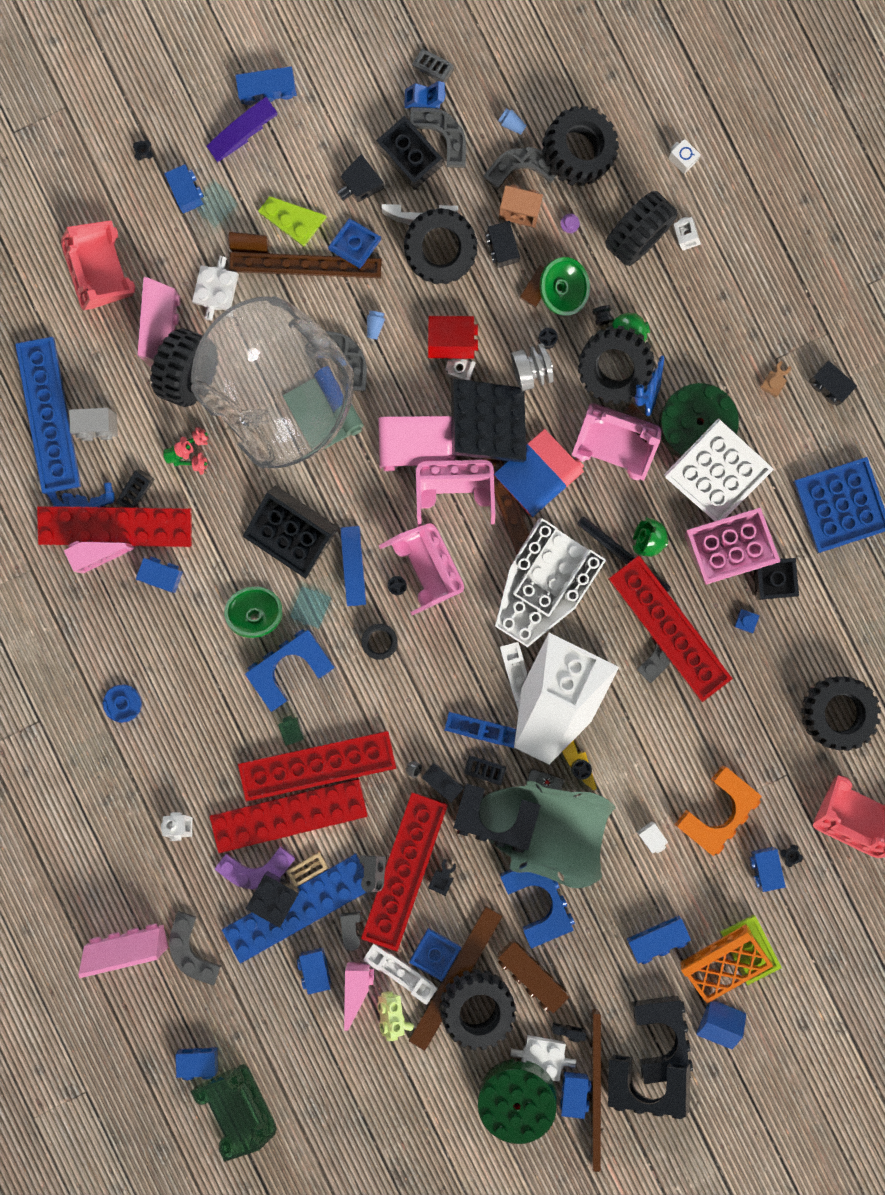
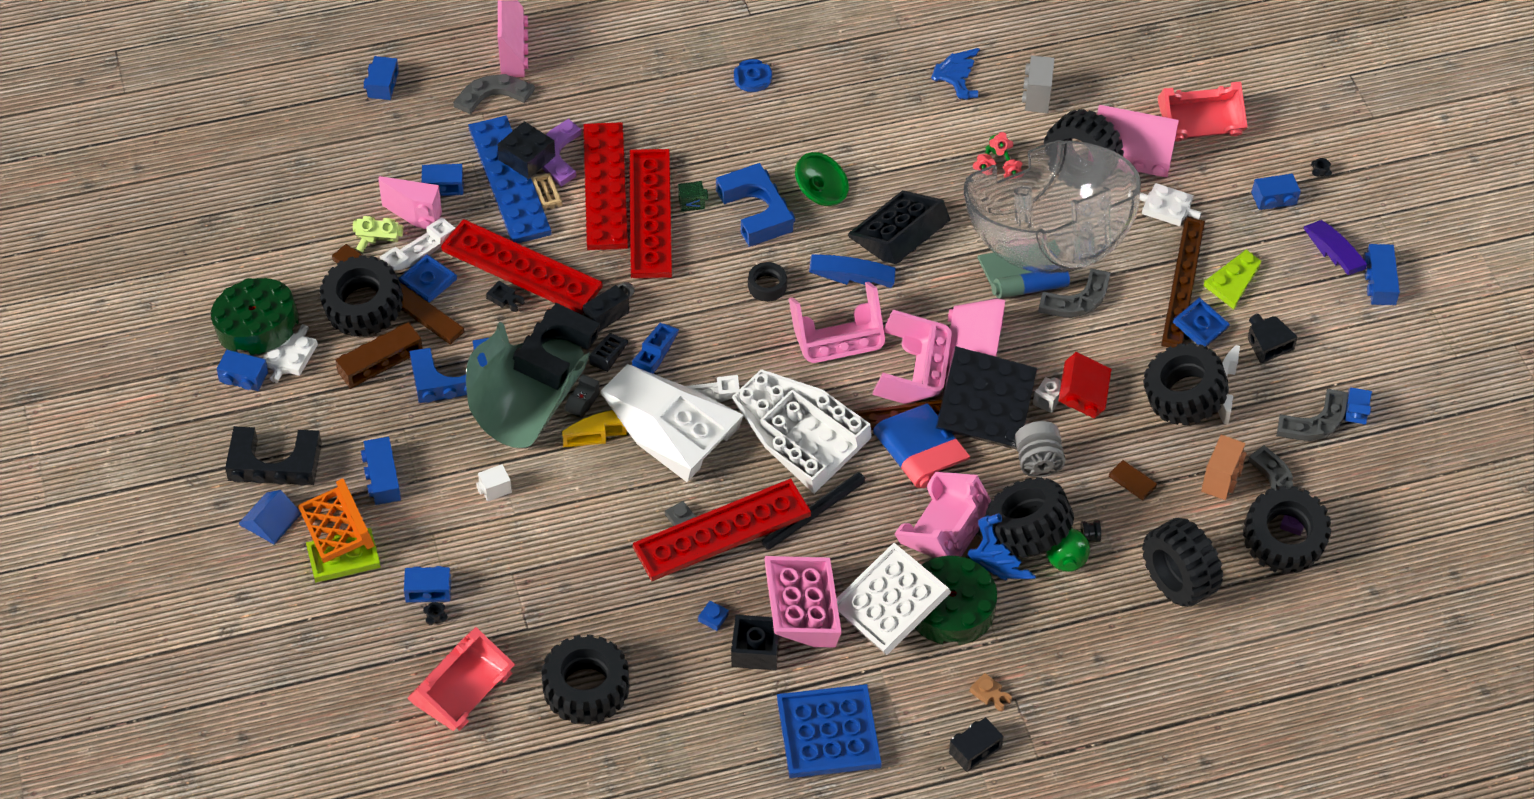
camera: 95 degrees right, 35 degrees down
(48, 415) = (1068, 56): blue plate -> none
(89, 555) = (905, 65): bright pink slope -> none
(115, 525) = (932, 93): red plate -> none
(129, 486) = (973, 118): black slope -> none
(159, 575) = (875, 117): blue brick -> none
(176, 826) = (619, 93): white brick -> none
(216, 204) = (1257, 220): clear light blue piece -> none
(238, 1110) = (326, 104): clear green windscreen -> none
(248, 242) = (1212, 237): reddish brown slope -> none
(310, 607) = (816, 234): clear light blue piece -> none
(351, 938) = (474, 212): dark grey leg -> none
(373, 873) = (528, 236): dark grey leg -> none
(374, 324) = (1110, 327): medium blue cone -> none
(397, 585) = (823, 305): black wheel -> none
(409, 152) = (1295, 380): black brick -> none
(449, 68) = (1390, 435): dark grey slope -> none
(503, 244) = (1184, 452): black brick -> none
(511, 121) = (1325, 482): medium blue cone -> none
(547, 334) = (1076, 474): black wheel -> none
(570, 223) = (1202, 519): medium lavender plate -> none
(572, 283) = (1126, 479): green dish -> none
(573, 1033) = (307, 379): black plate -> none
(583, 771) = (586, 413): black wheel -> none
(595, 1090) = (241, 389): reddish brown tile -> none
(624, 1096) = (228, 410): black arch -> none
(650, 537) = (827, 532): green cylinder -> none
(683, 156) = (1268, 639): white brick -> none
(689, 240) = (1176, 626): white brick -> none
(743, 801) = (512, 573): orange arch -> none

